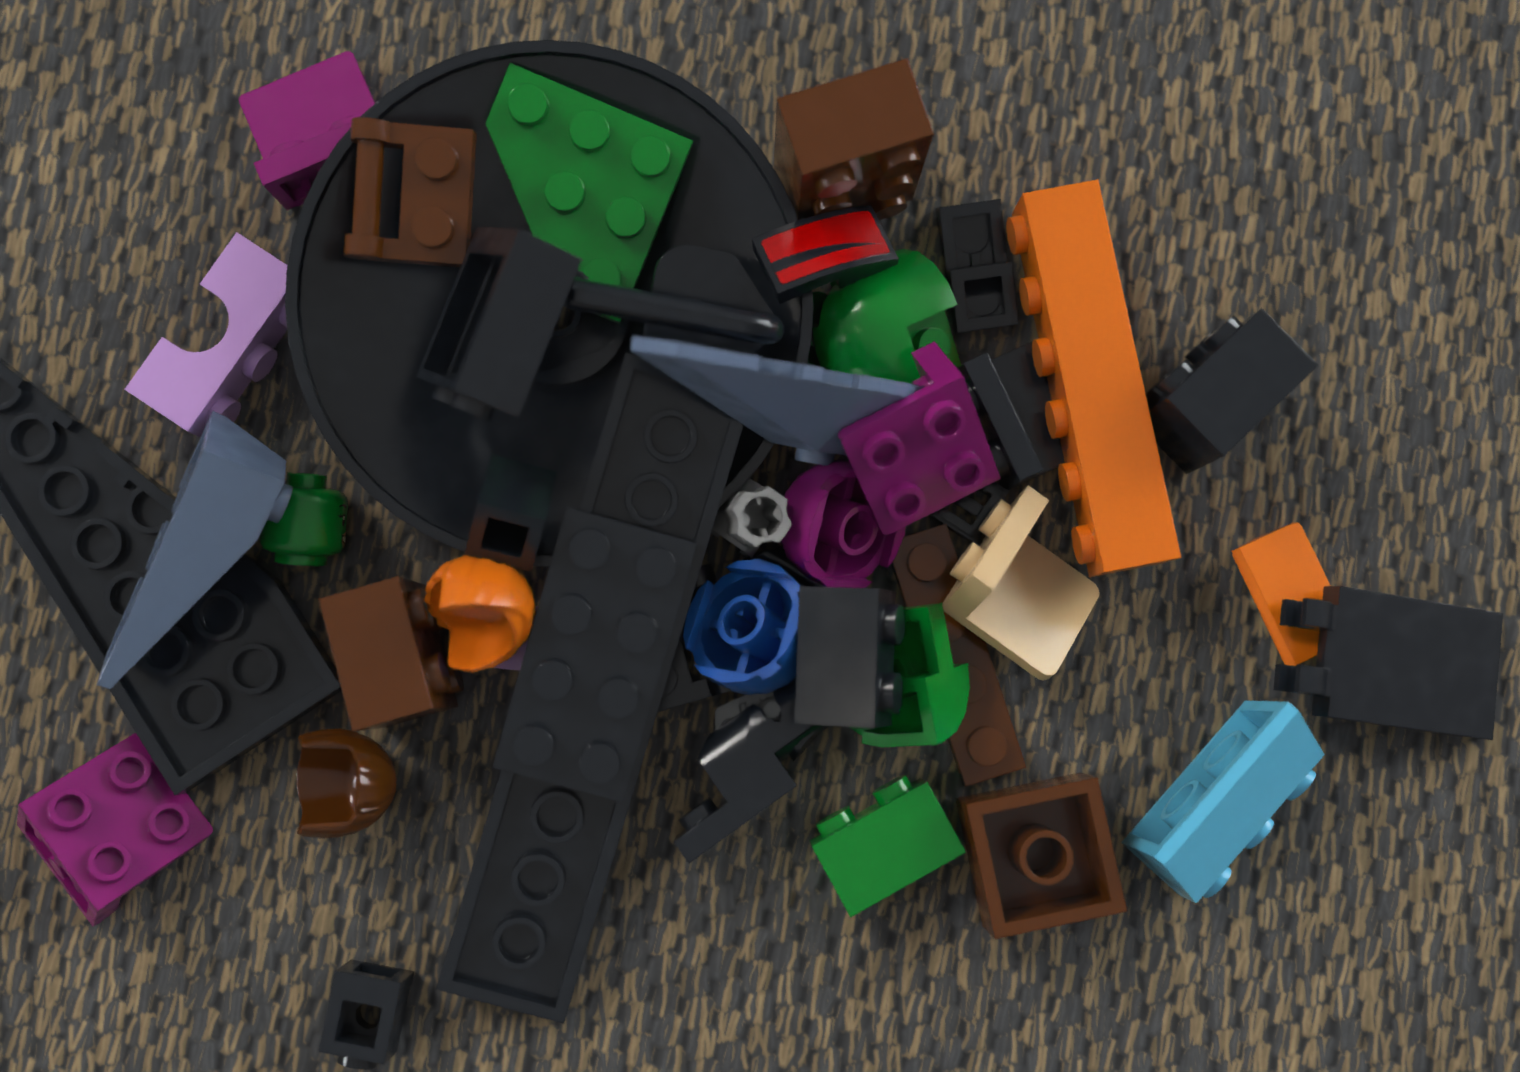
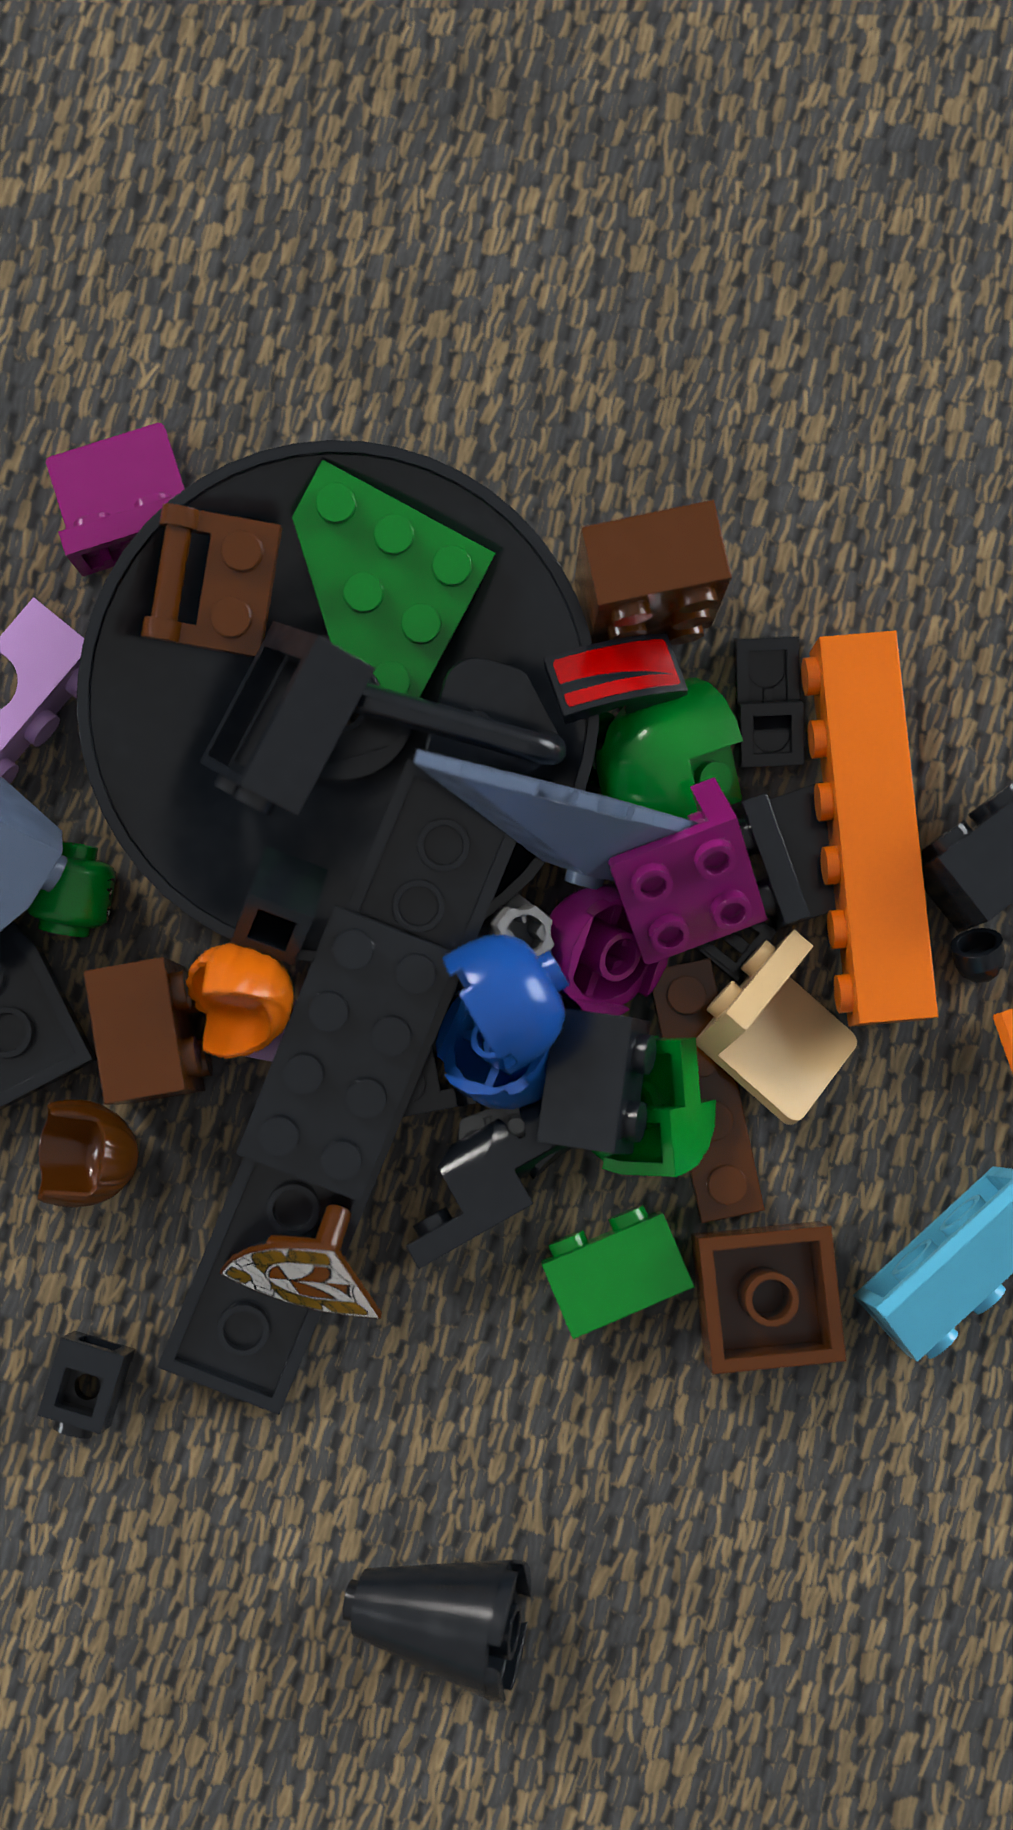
camera: 10 degrees right, 0 degrees up
(575, 876) = (306, 1270): none -> shield
(754, 579) = (511, 995): none -> blue cylinder
(1210, 492) = (978, 954): none -> black hinge

